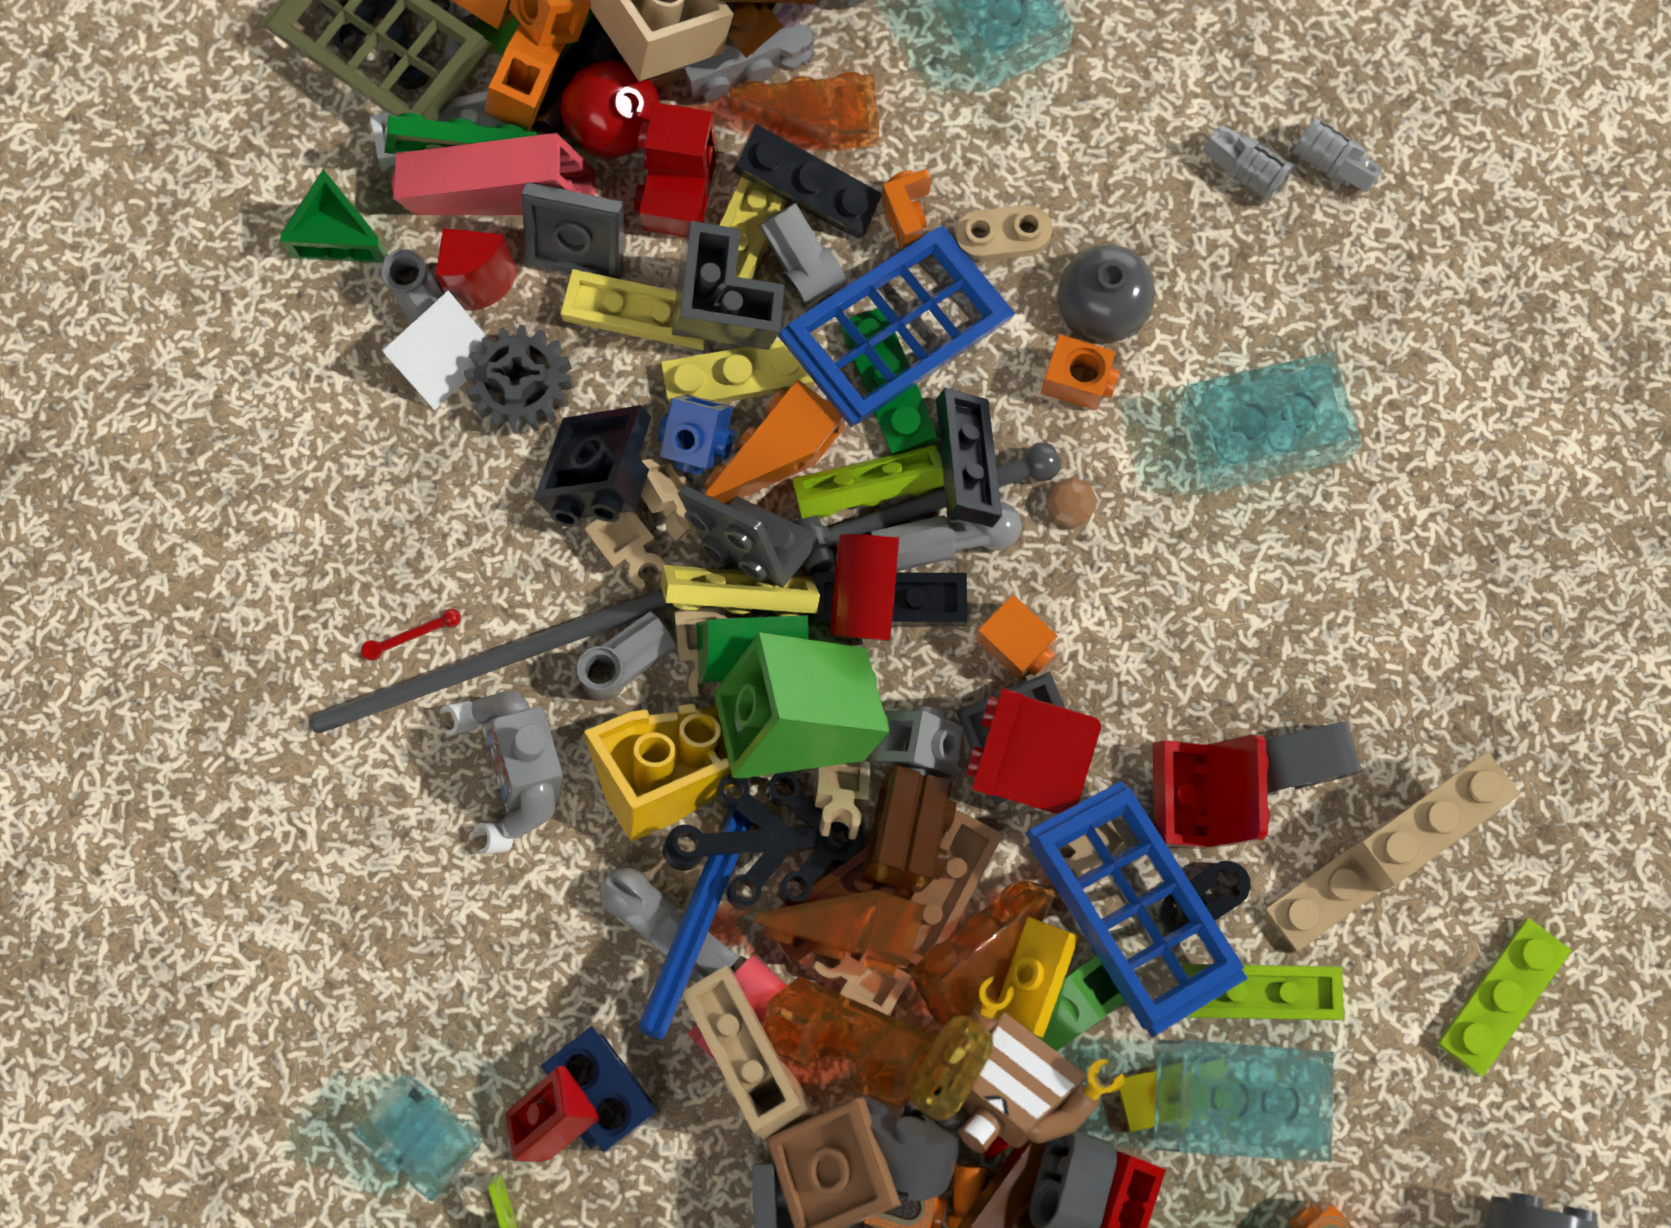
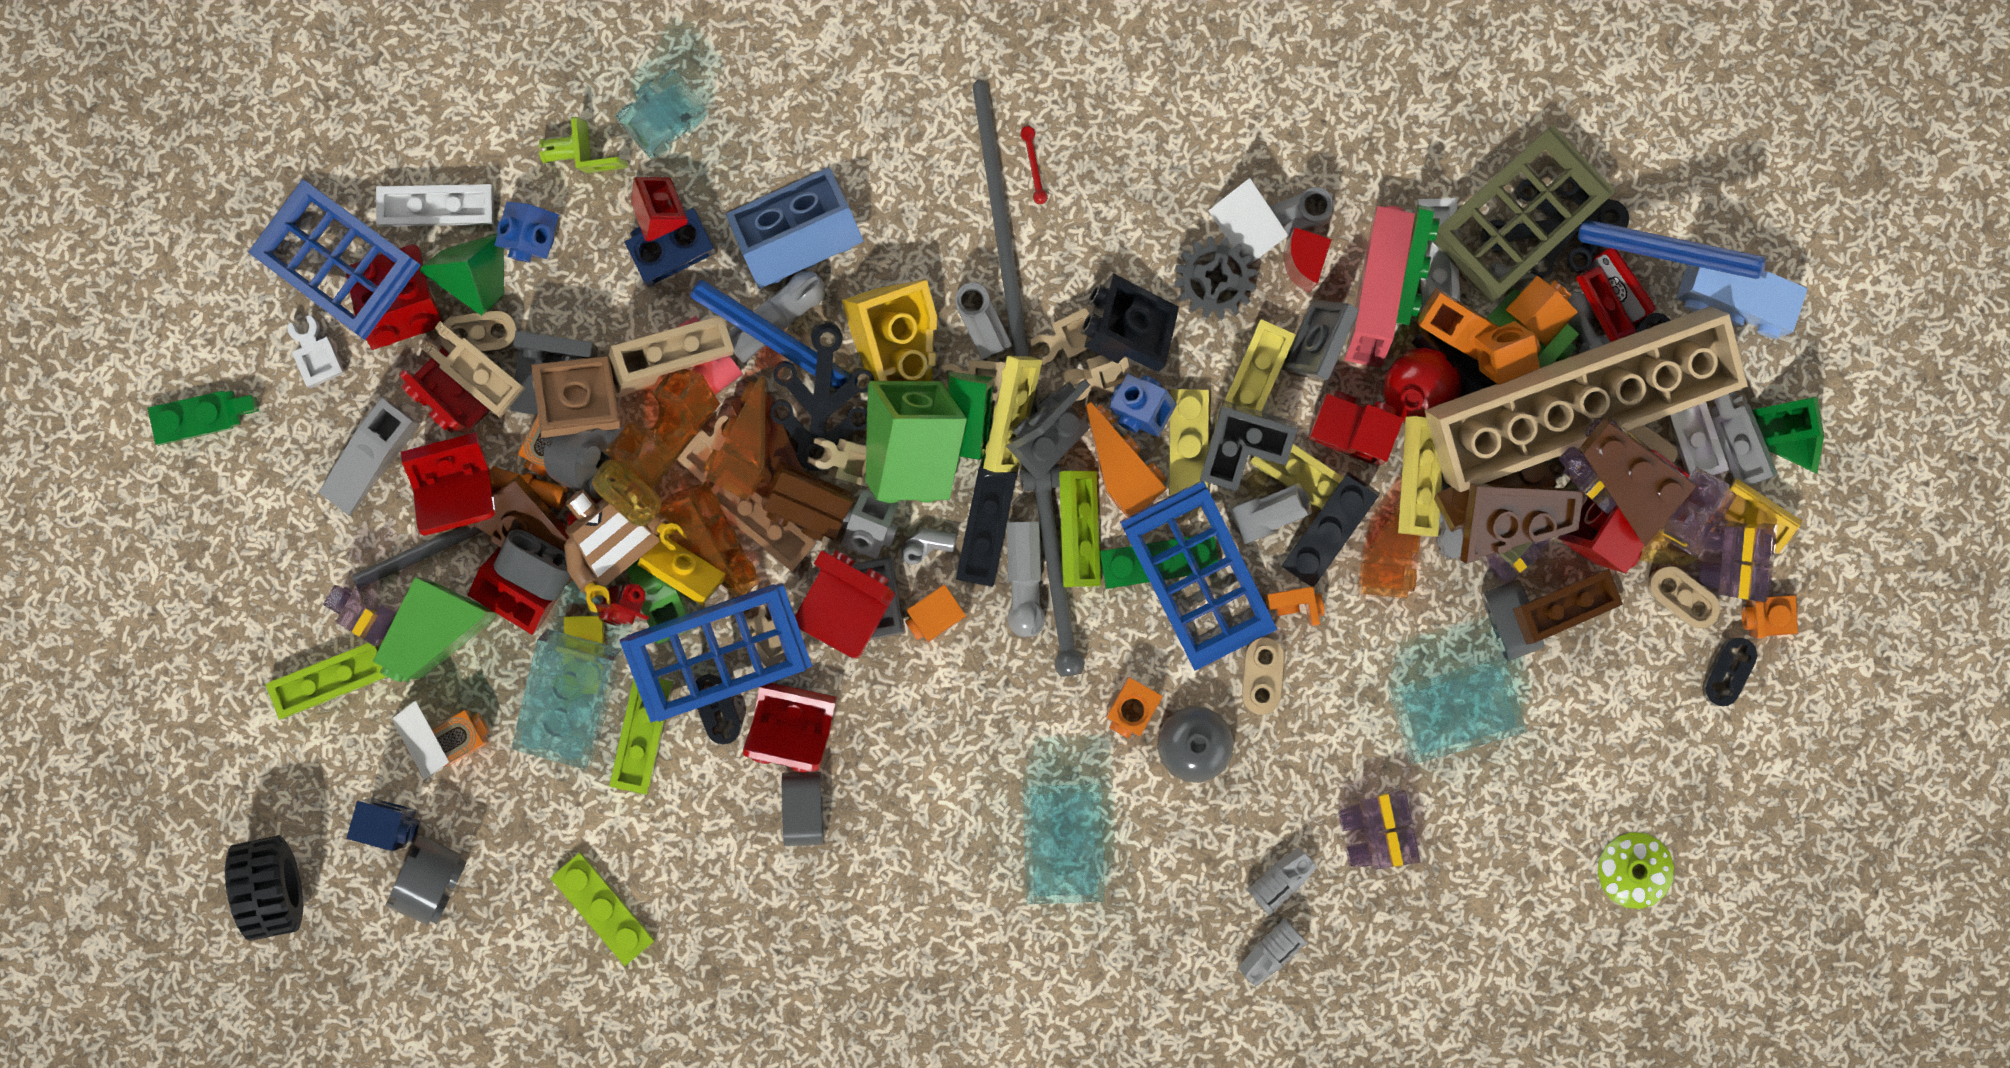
camera: 95 degrees right, 10 degrees up
(330, 228) = (1366, 155): green slope -> none
(521, 759) = (917, 230): light grey torso -> none
(544, 925) = (794, 228): none -> medium blue slope
(726, 78) = (1420, 481): none -> light yellow plate
(864, 586) = (992, 506): red brick -> none
(925, 674) = (924, 541): none -> light grey arm
(968, 458) = (1079, 605): black plate -> none
(1071, 503) = (1034, 680): medium nougat tile -> none
(1100, 1039) = (624, 605): none -> red hinge
(1160, 54) = (1378, 814): none -> hips
(1392, 851) = (719, 850): tan bracket -> none

